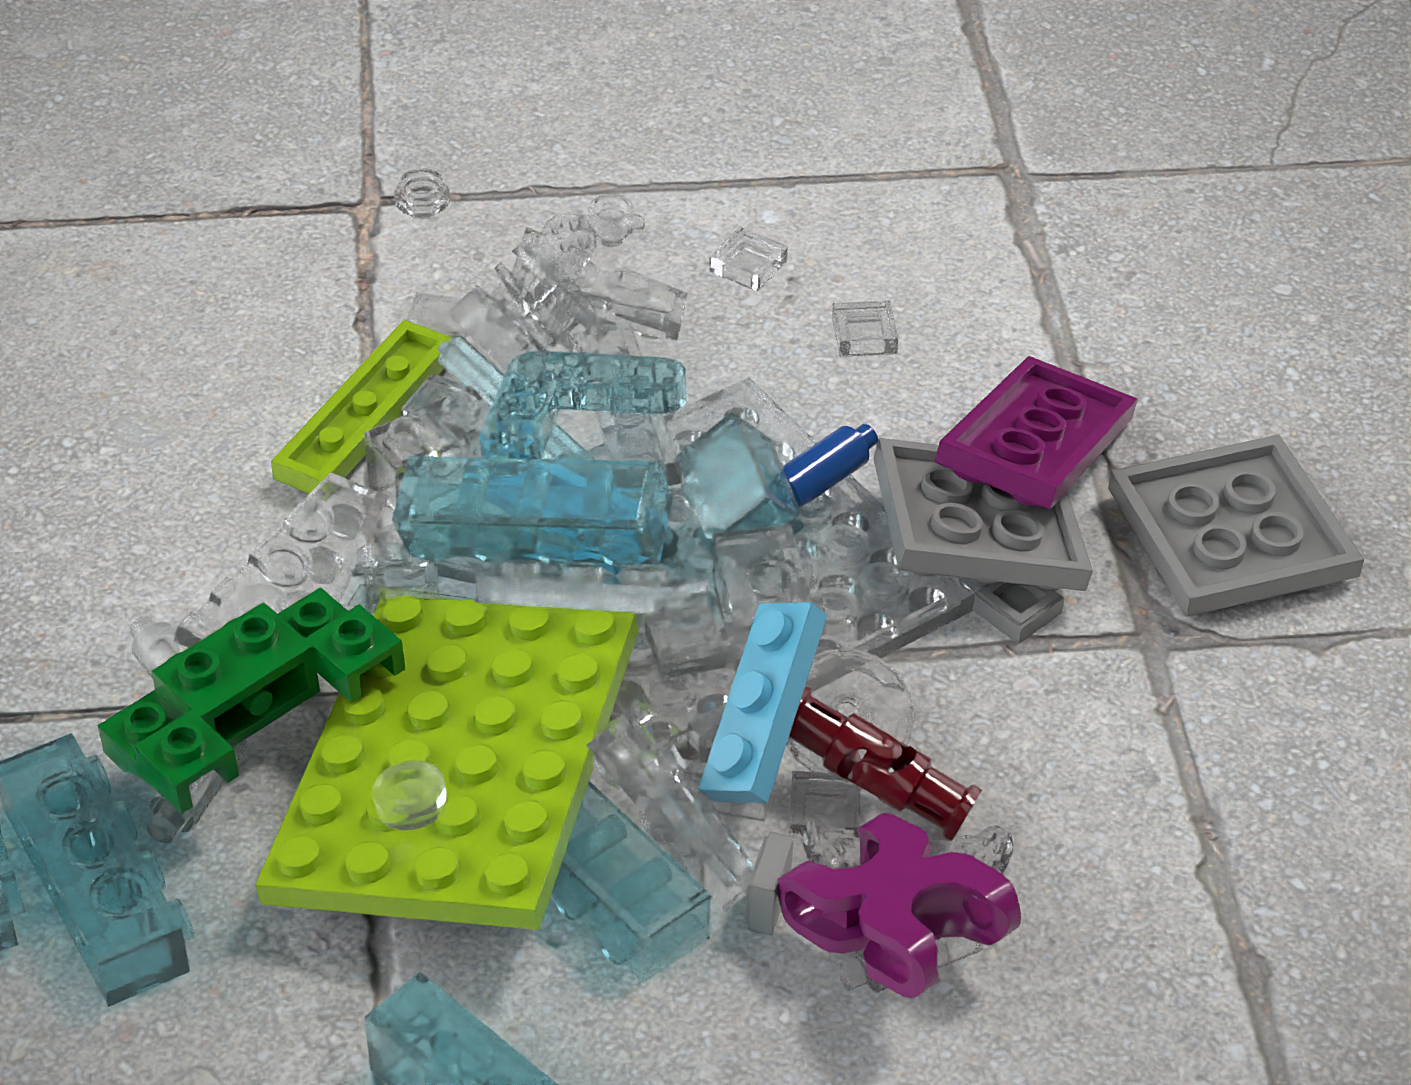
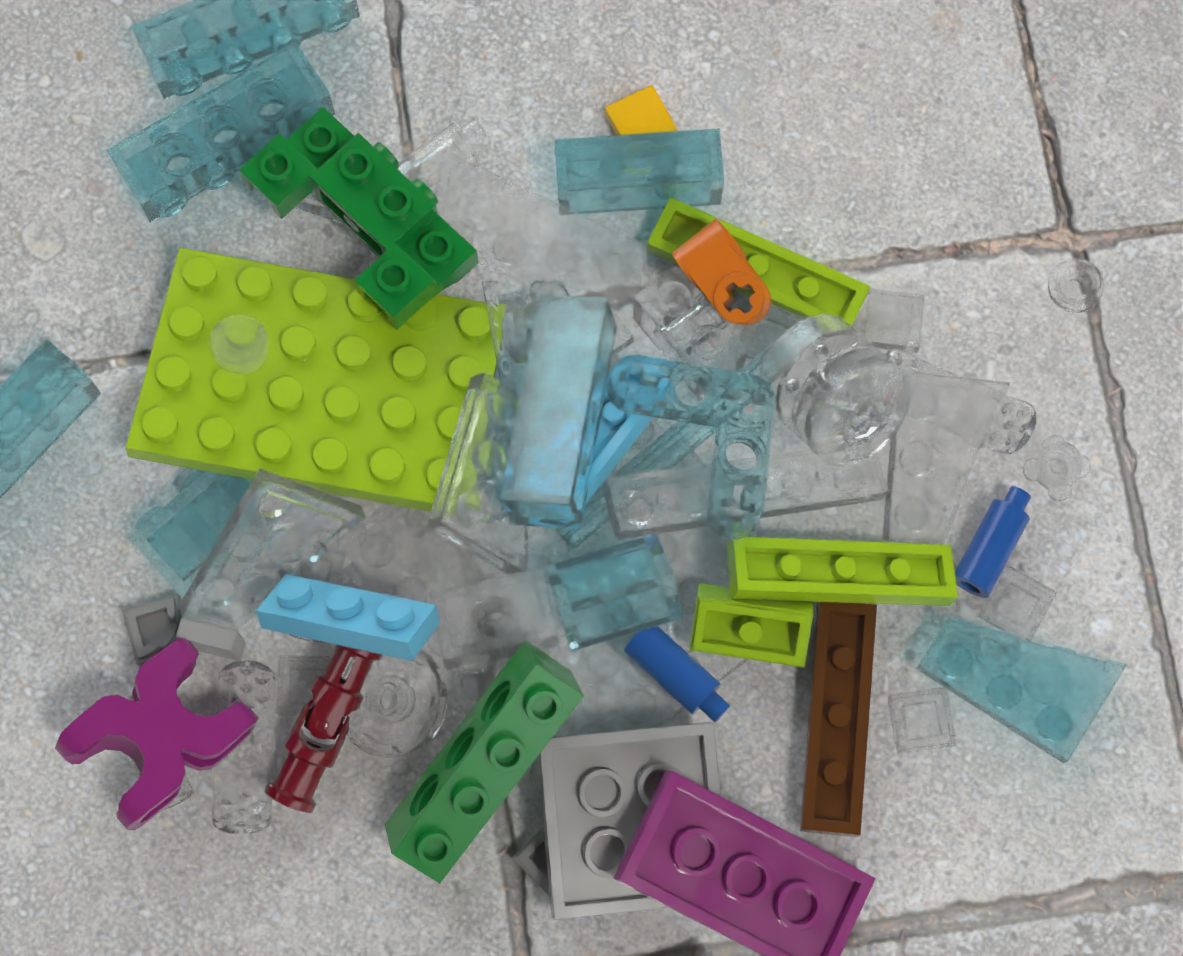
camera: 90 degrees right, 30 degrees up
(165, 496) = (639, 114): none -> yellow tile
(233, 481) = (639, 171): none -> clear light blue brick
(379, 395) = (720, 266): none -> orange piece
(688, 265) = (993, 543): none -> blue cylinder
(717, 351) = (841, 571): none -> lime plate
(748, 961) = (152, 626): none -> light grey tile
(777, 404) = (751, 628): none -> lime slope
(830, 256) = (1024, 685): none -> clear light blue wing
(865, 376) = (838, 719): none -> reddish brown plate
(894, 598) = (482, 761): none -> green brick

